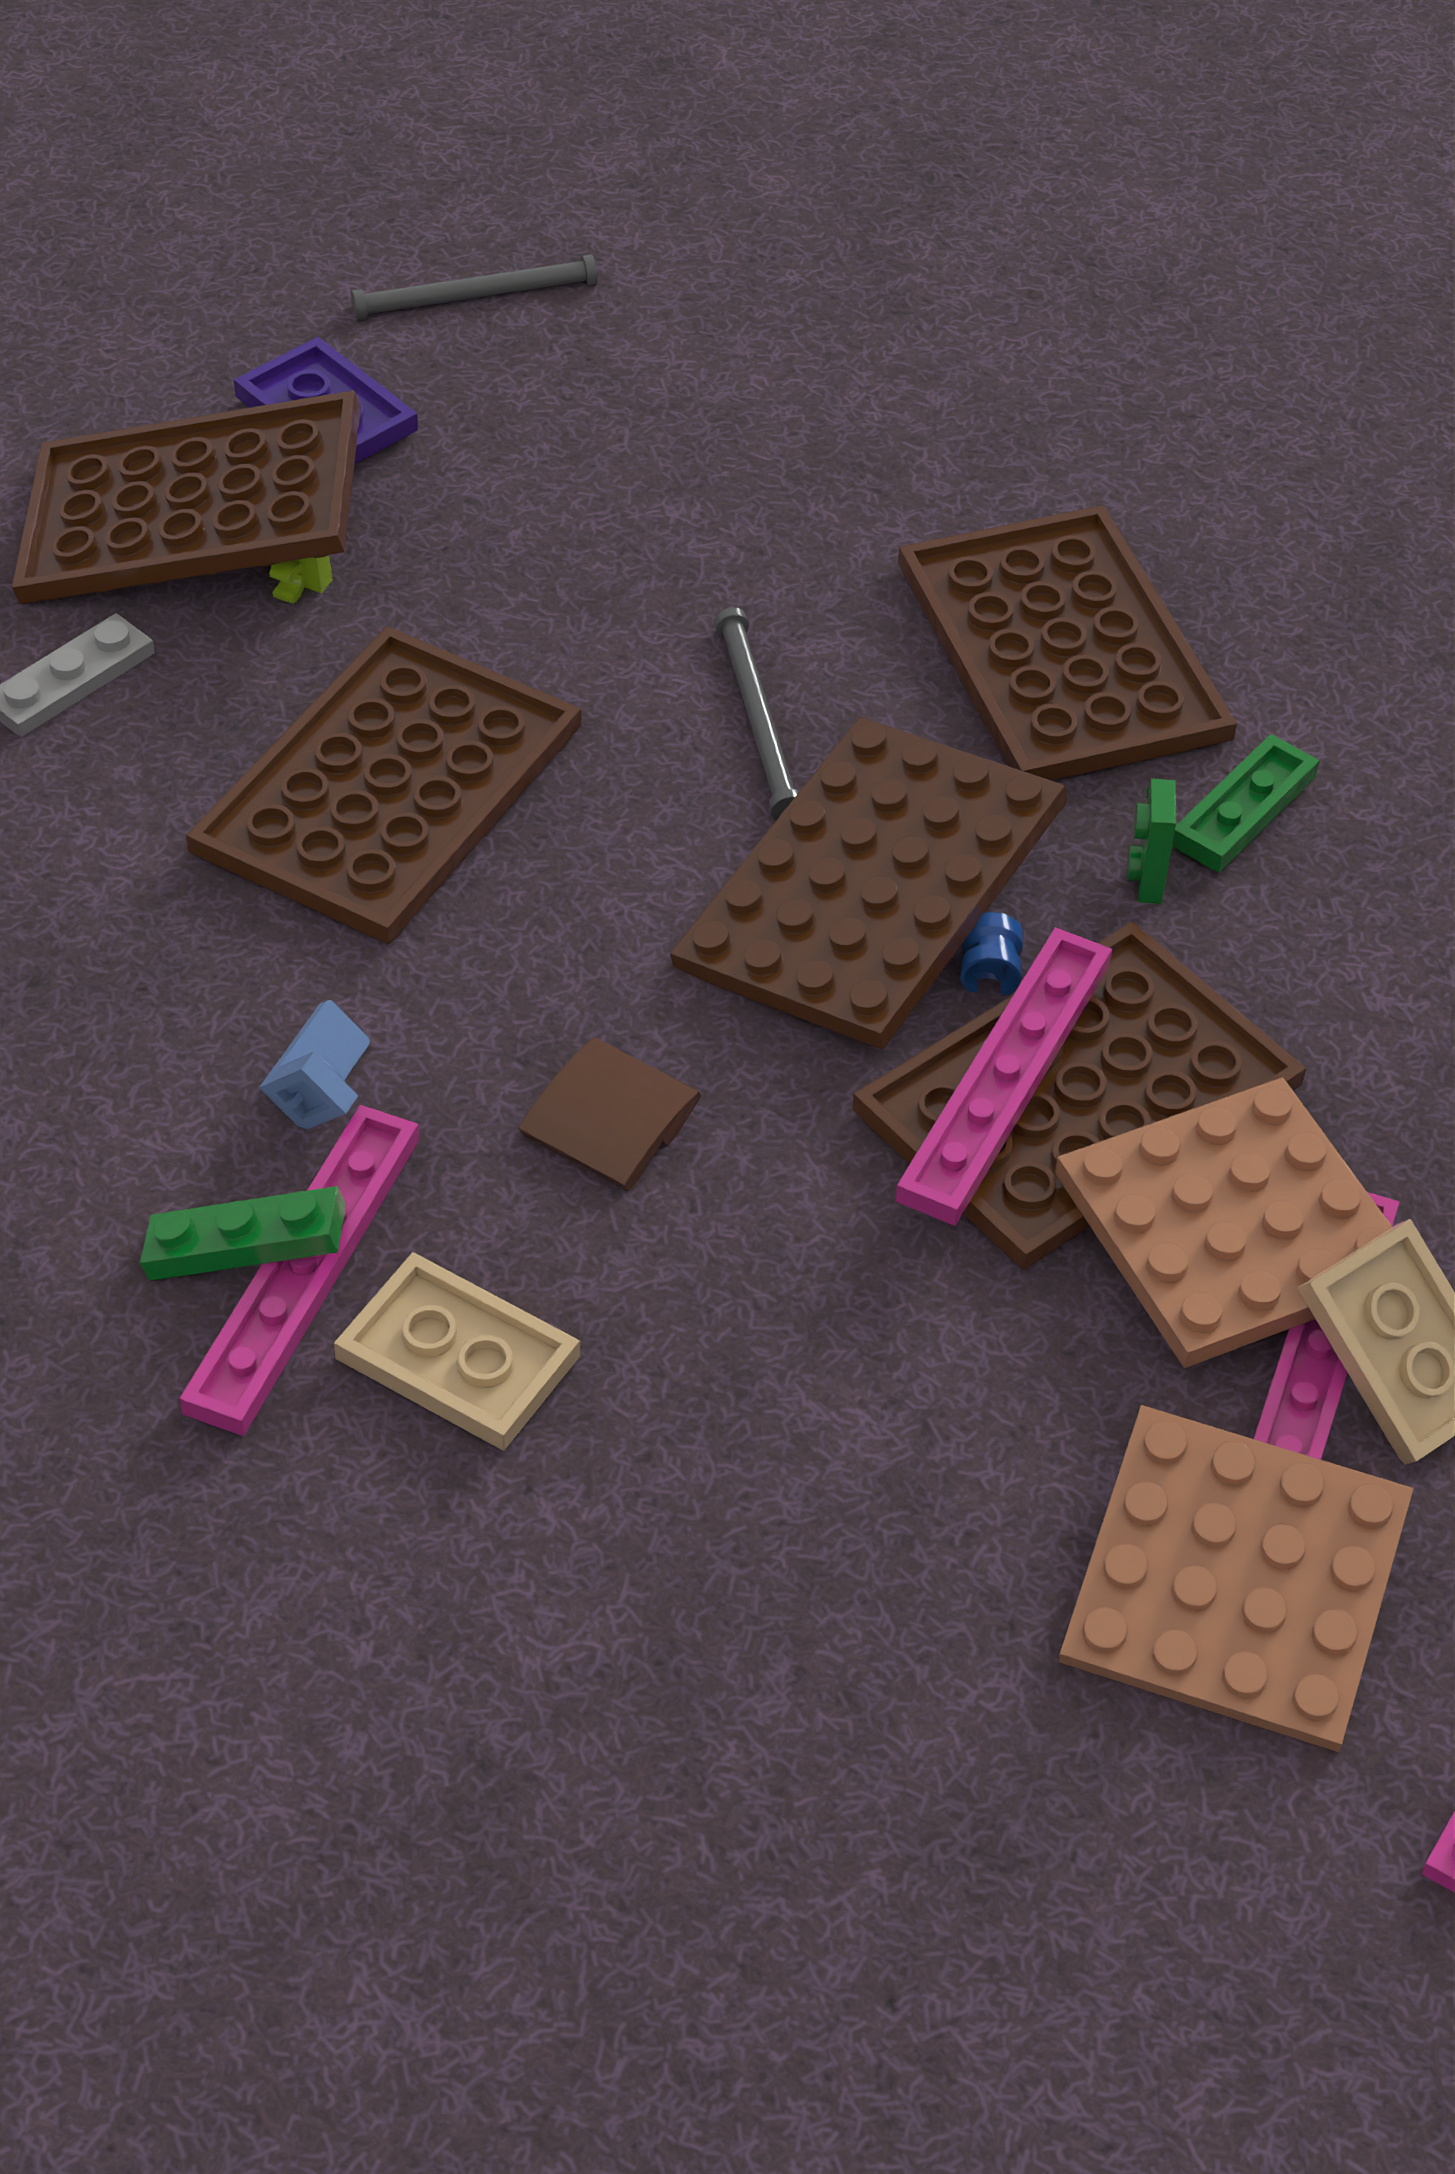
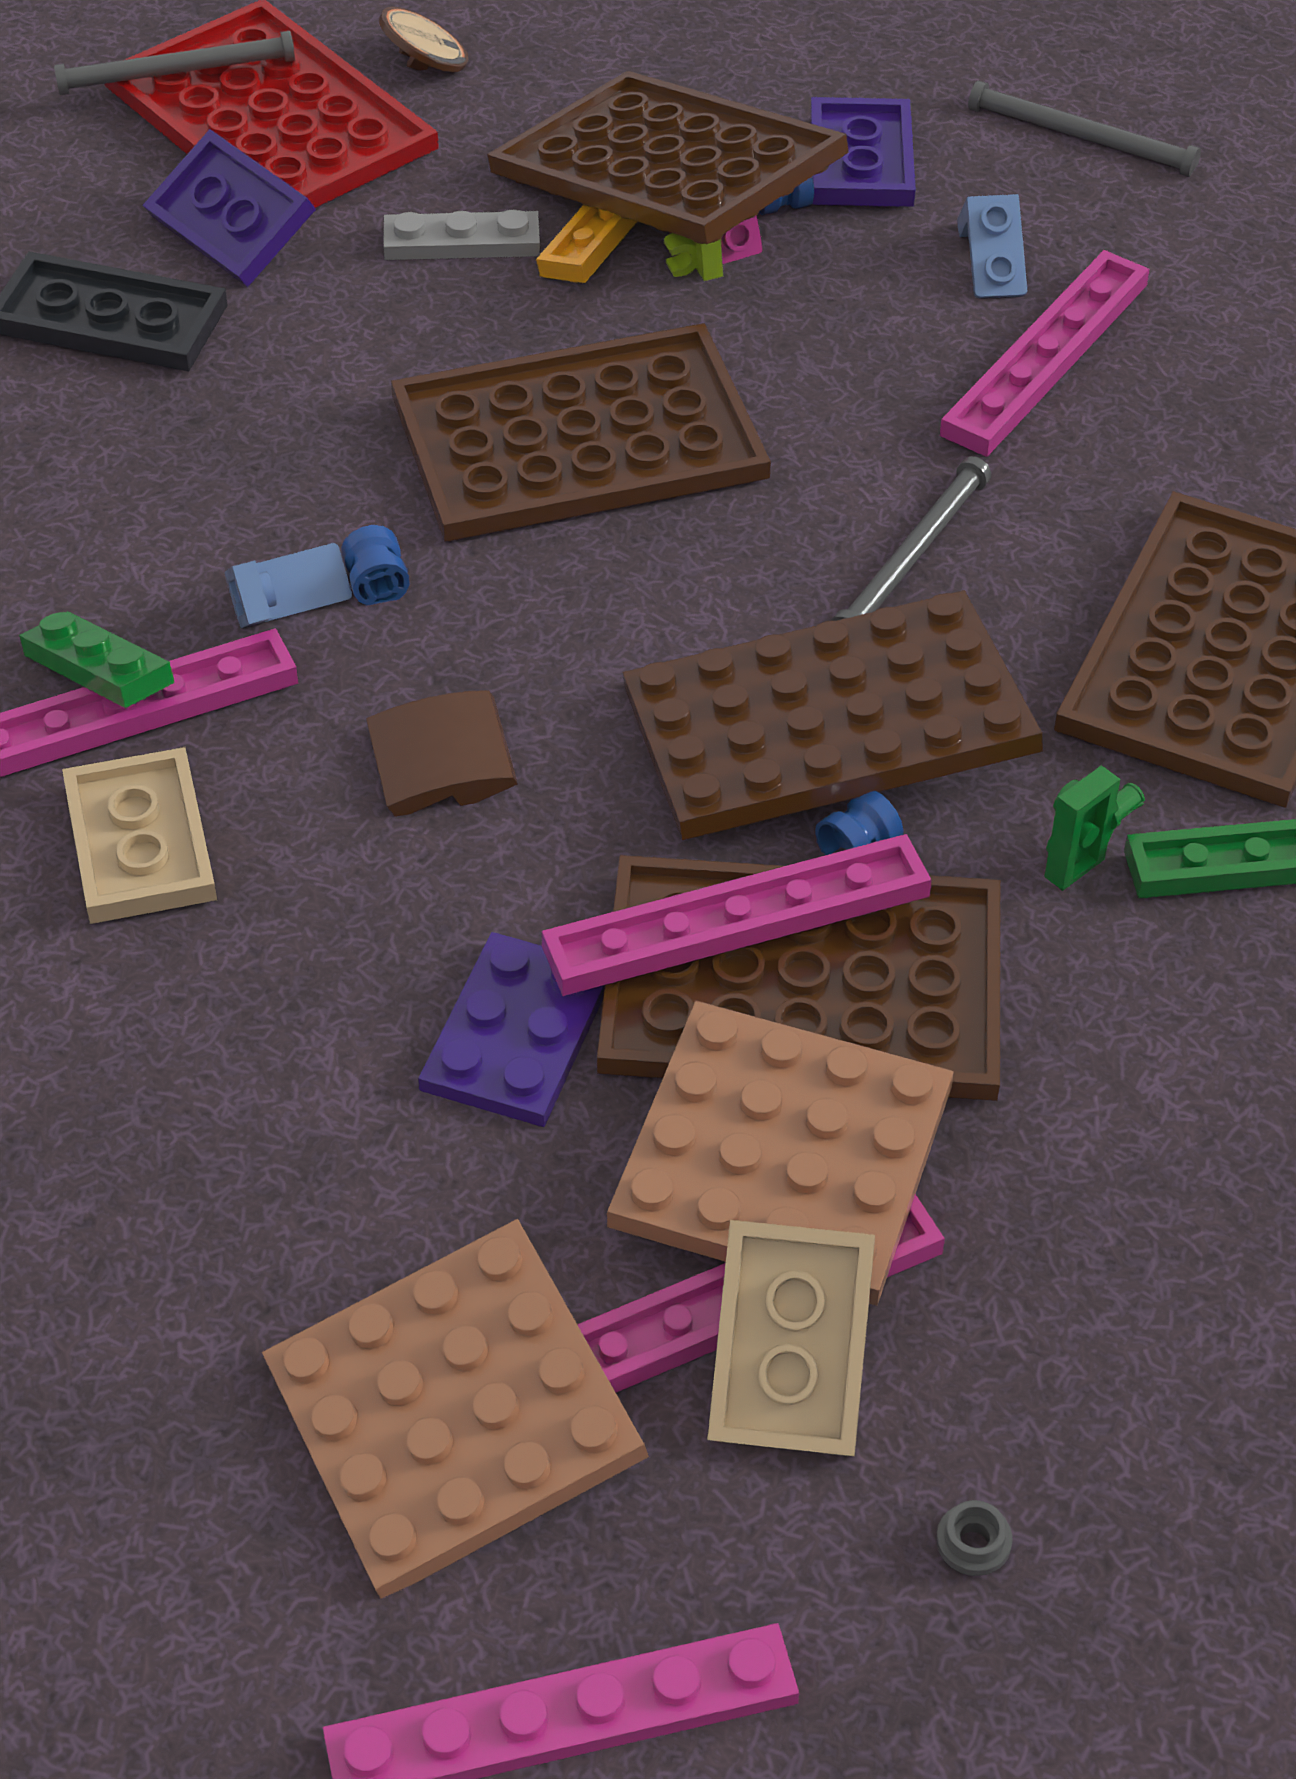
camera: 45 degrees right, 0 degrees up
(194, 620) = (583, 244): none -> light orange plate
(371, 999) = (375, 565): none -> blue wheel
(534, 421) = (994, 245): none -> medium blue bracket
(671, 494) = (1044, 353): none -> dark pink plate
(928, 1286) = (510, 1034): none -> dark purple plate

